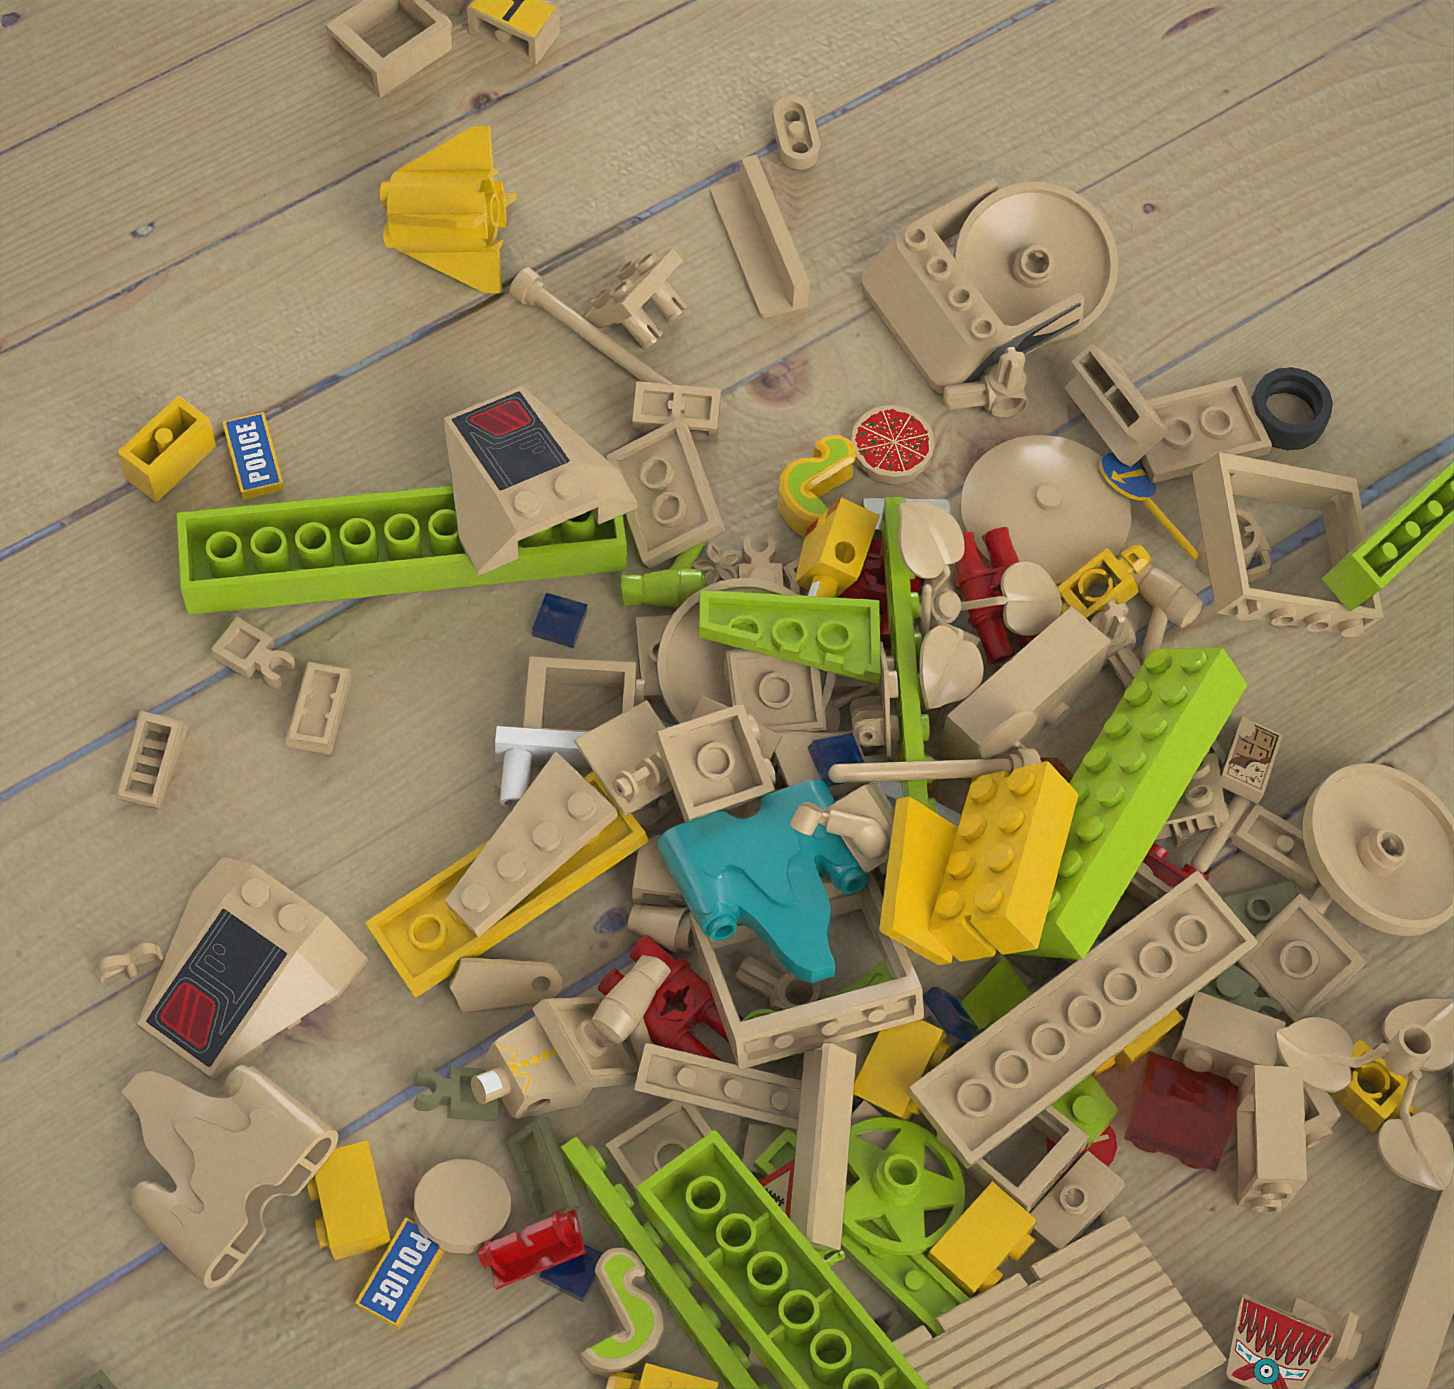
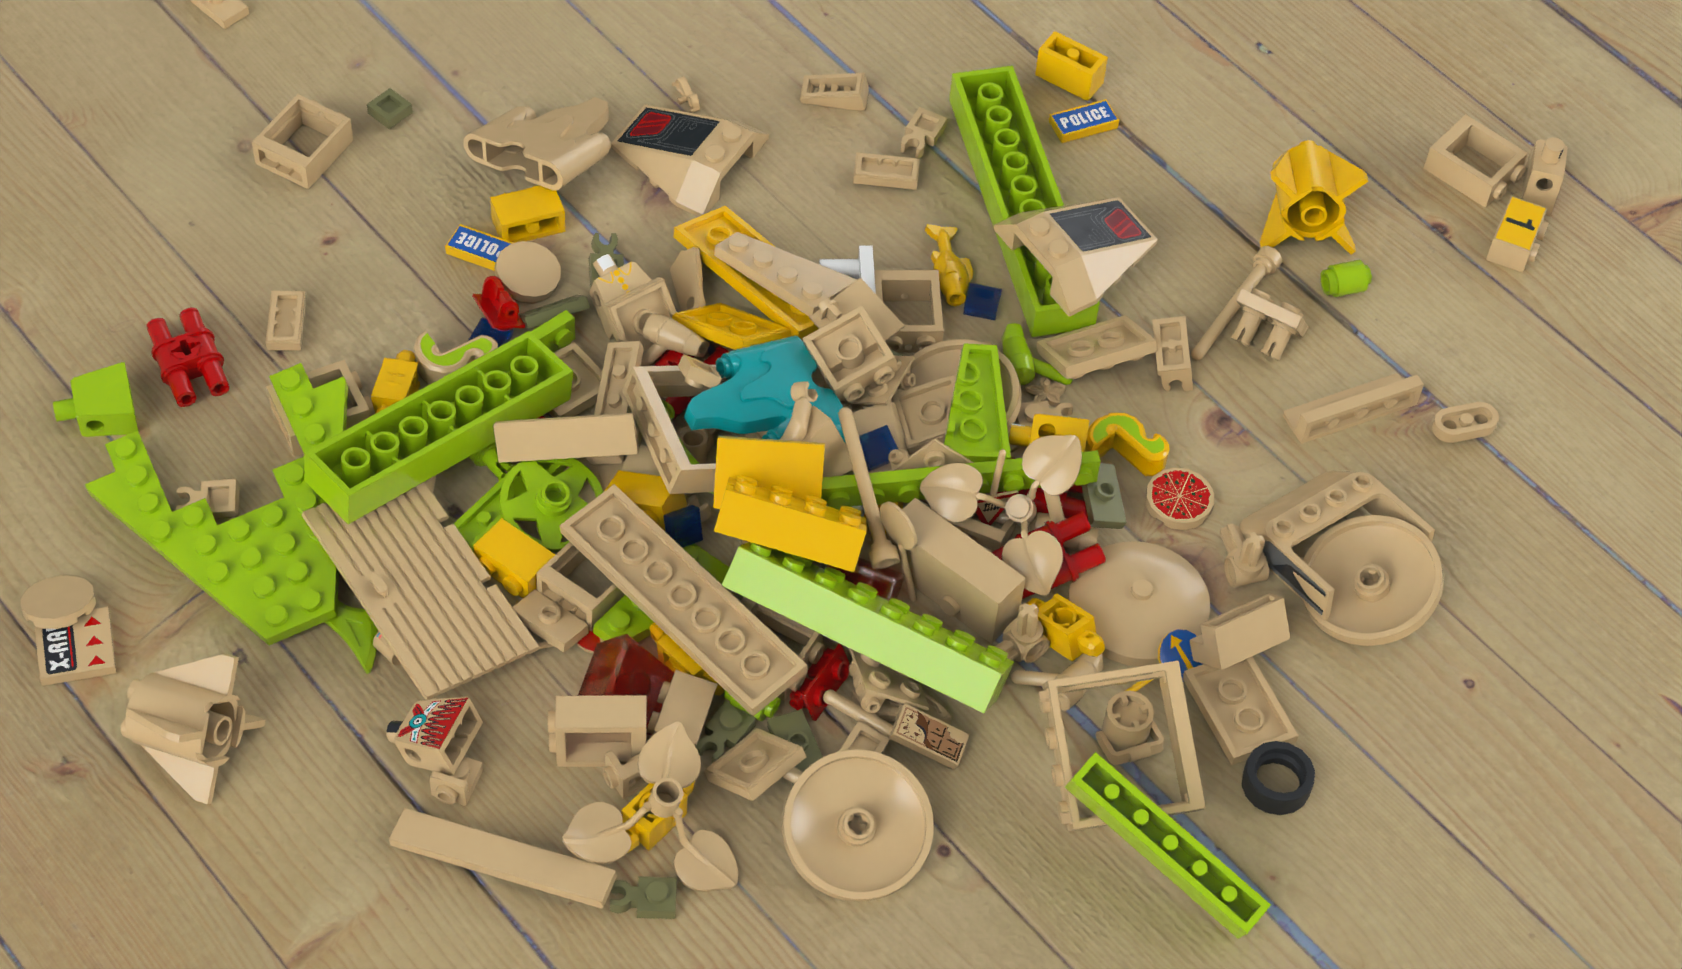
camera: 85 degrees right, 10 degrees down
(504, 648) = (954, 272): none -> yellow animal
(568, 208) = (1345, 278): none -> lime brick
(614, 925) = (730, 326): none -> yellow tile
(740, 956) = (698, 373): none -> tan plate

